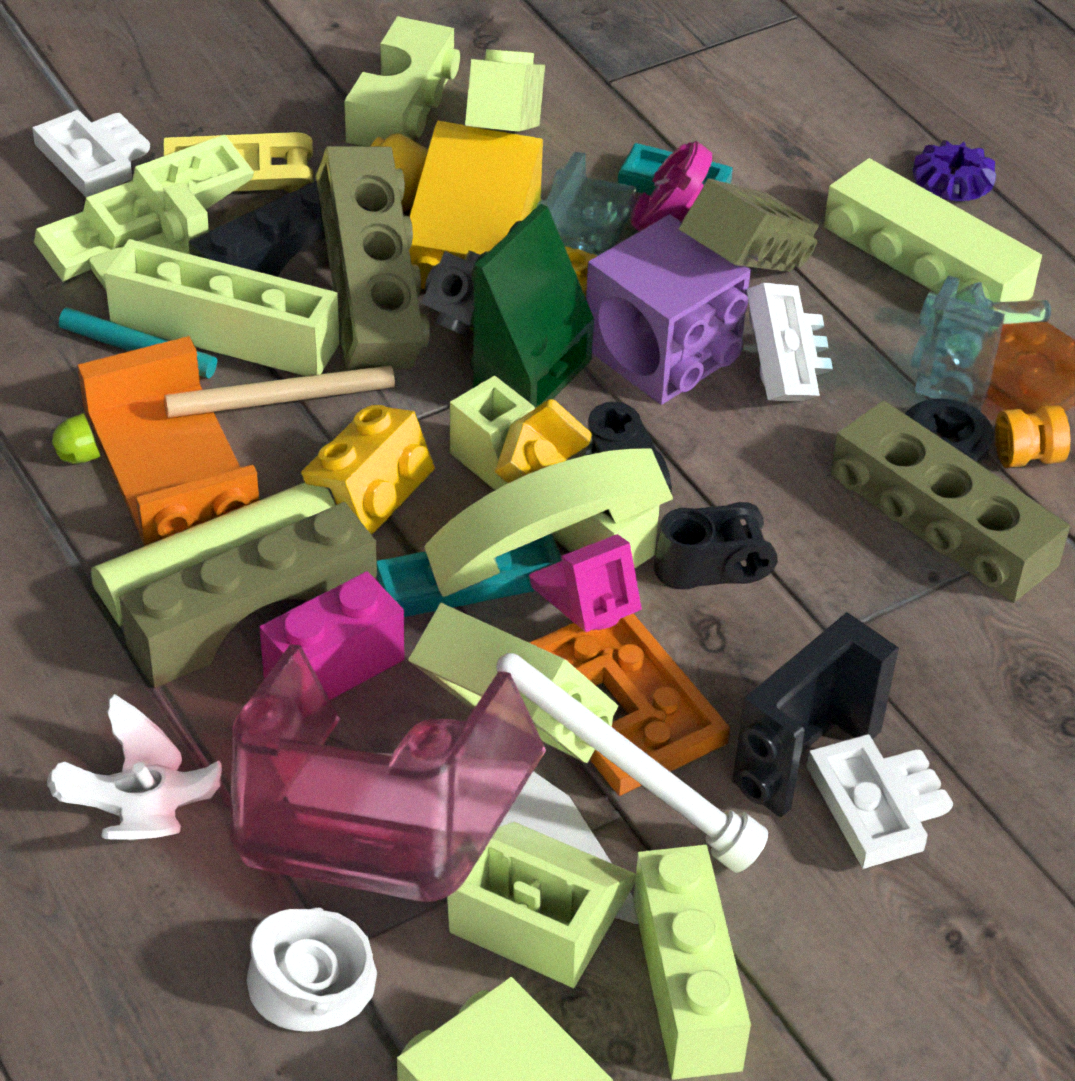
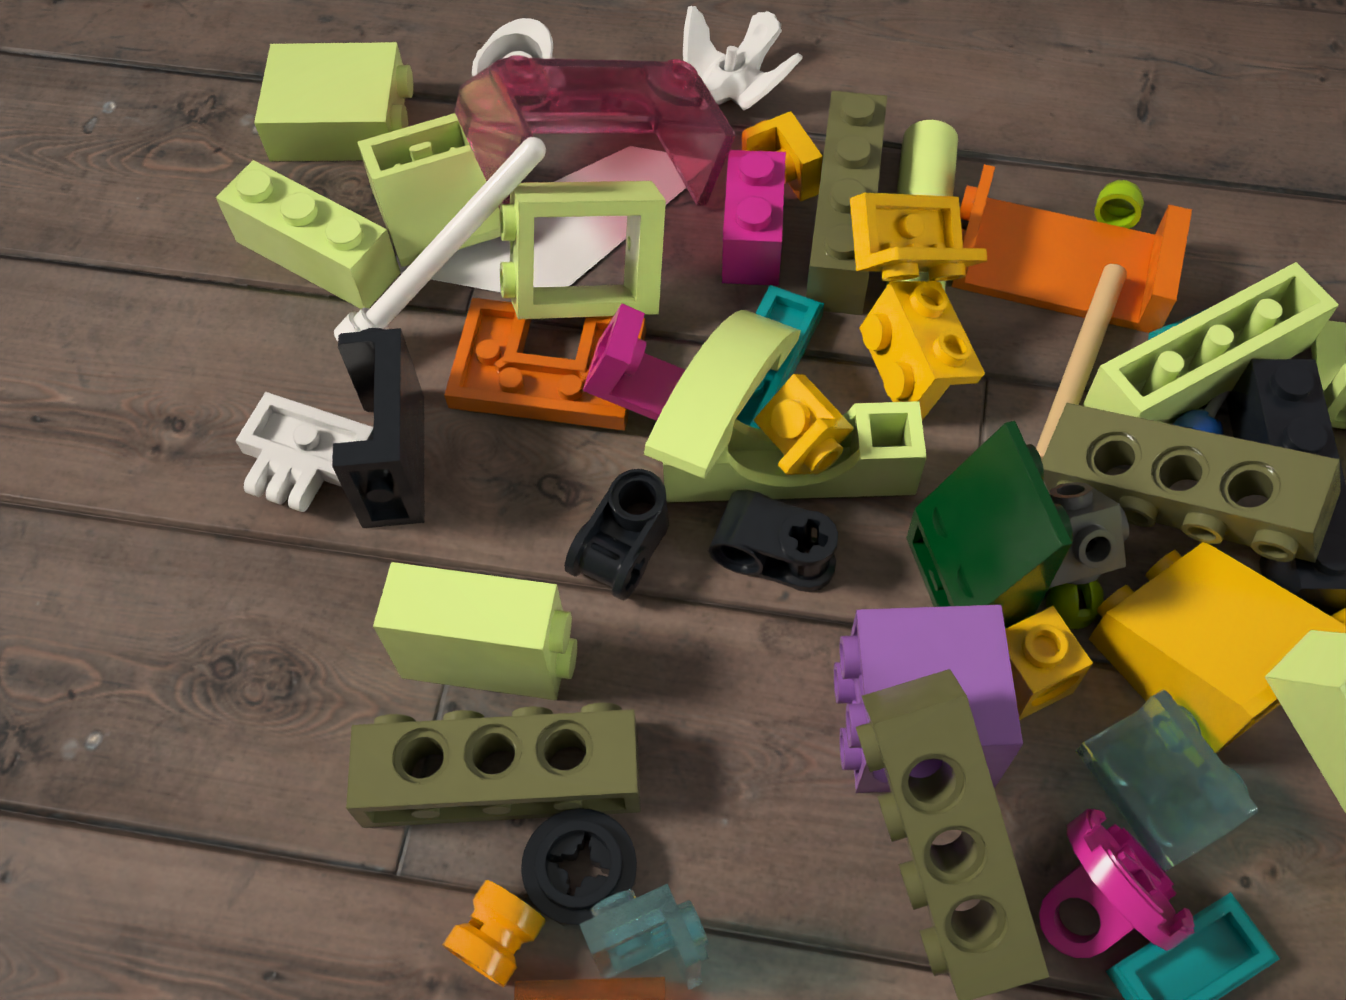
camera: 135 degrees right, 15 degrees up
(227, 669) = (802, 157): none -> yellow bracket
(298, 469) = (910, 236): none -> yellow bracket
(786, 342) = (797, 790): white hinge -> none
(890, 542) = (476, 630): none -> yellowish green brick

